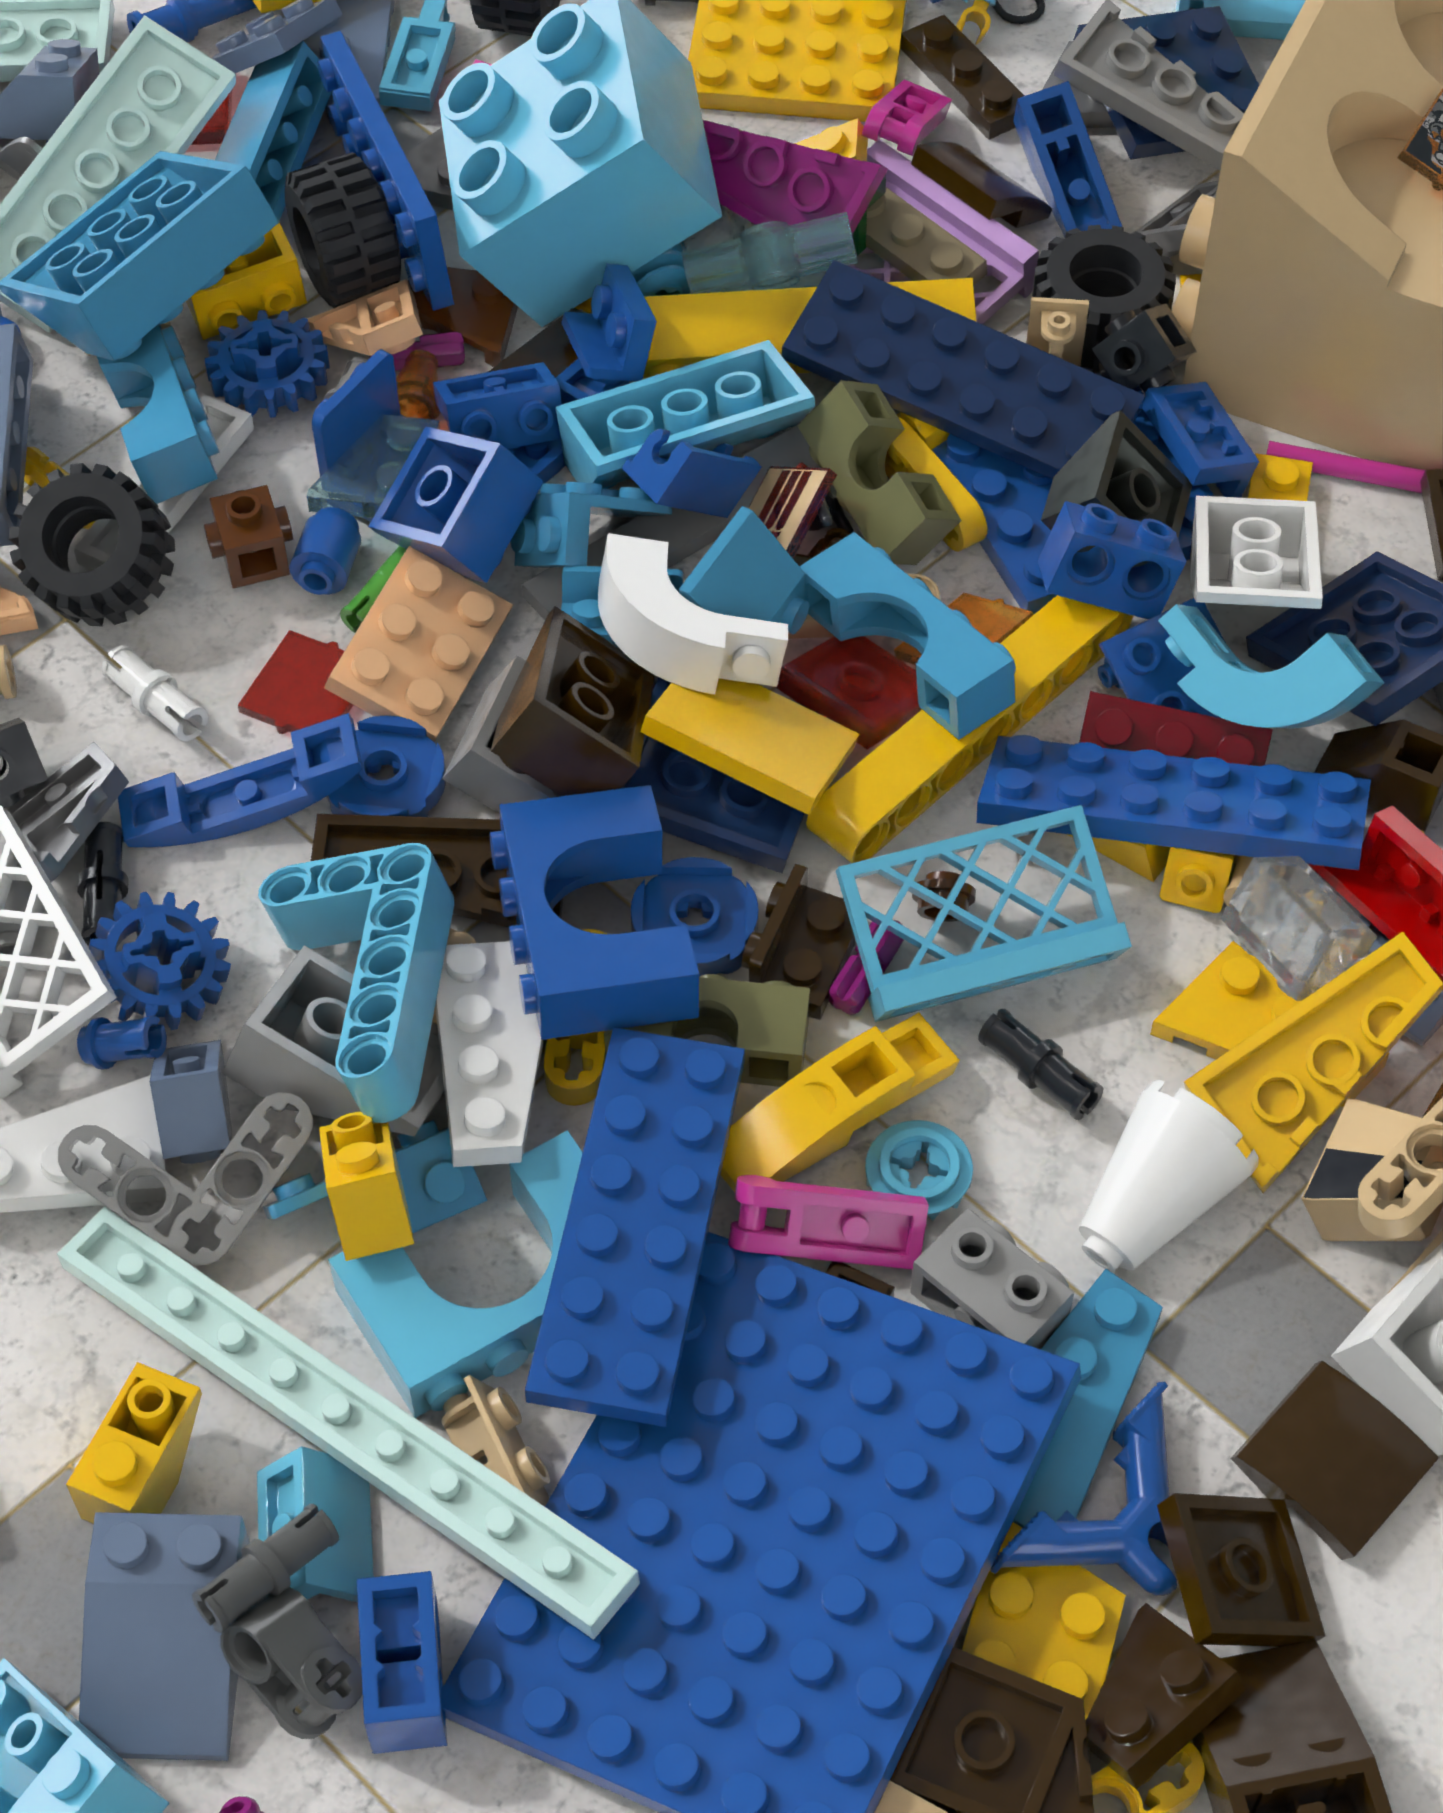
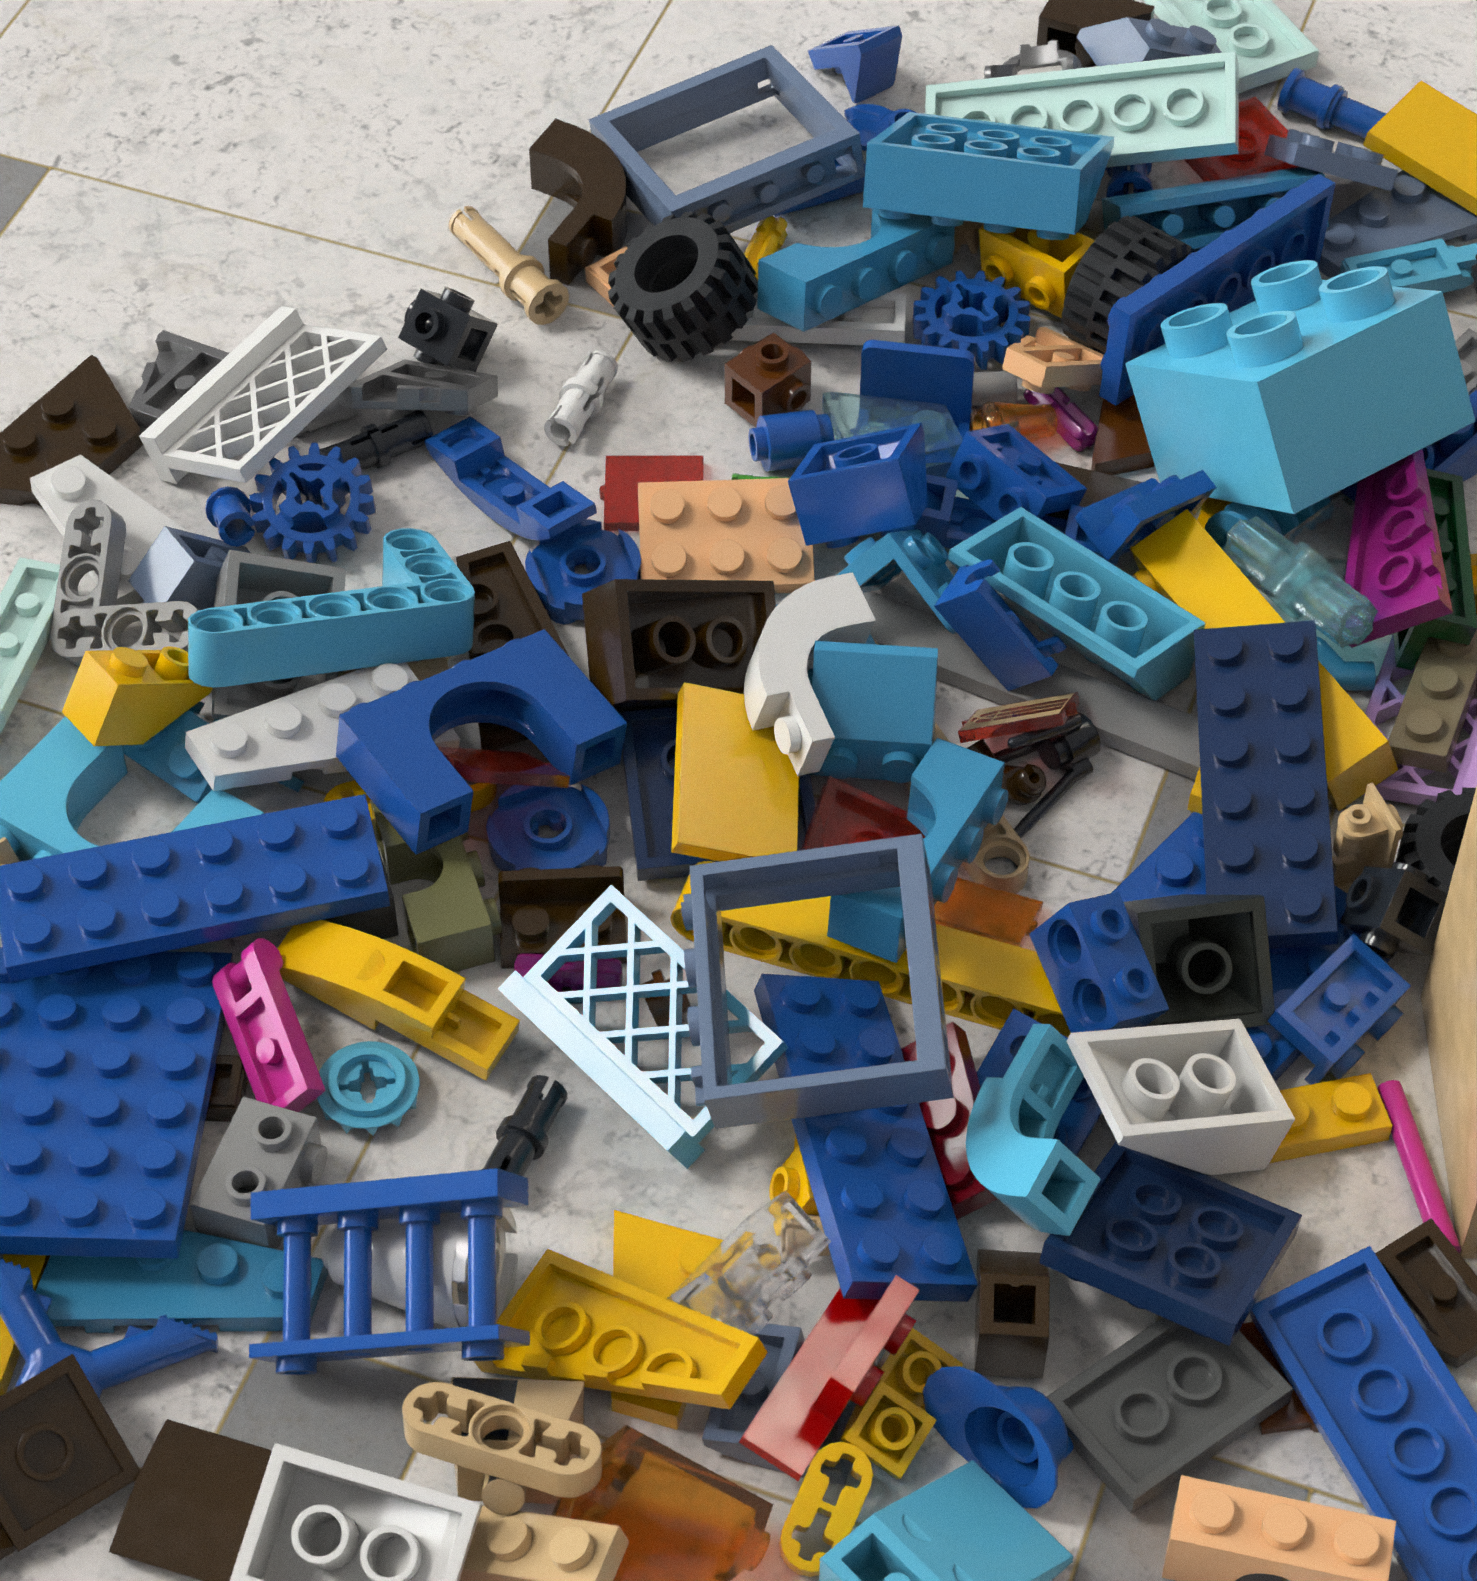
camera: 65 degrees right, 5 degrees down
(636, 905) = (504, 767): none -> clear red piece
(851, 437) = (1083, 795): olive arch -> none
(912, 455) = (1145, 821): yellow beam -> none
(1094, 655) = (801, 877): none -> sand blue window
(1130, 1191) = (357, 1212): none -> blue fence

